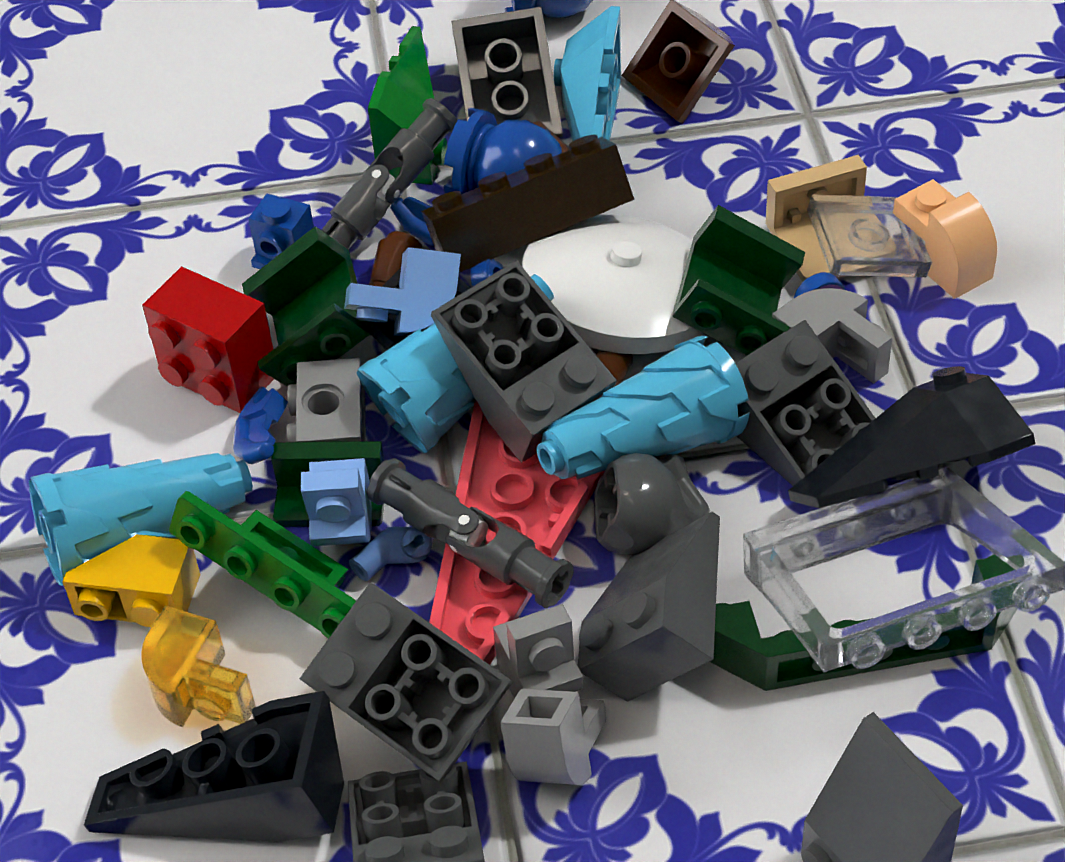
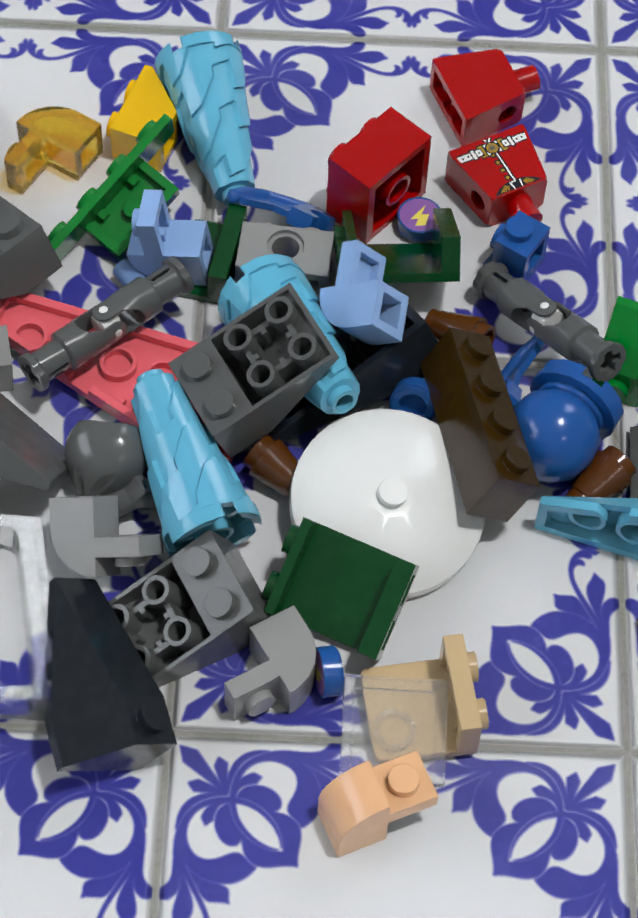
camera: 95 degrees right, 10 degrees up
(69, 296) = (480, 92): none -> red torso
(188, 243) = (498, 176): none -> red torso
(749, 484) = (89, 538): none -> light grey brick

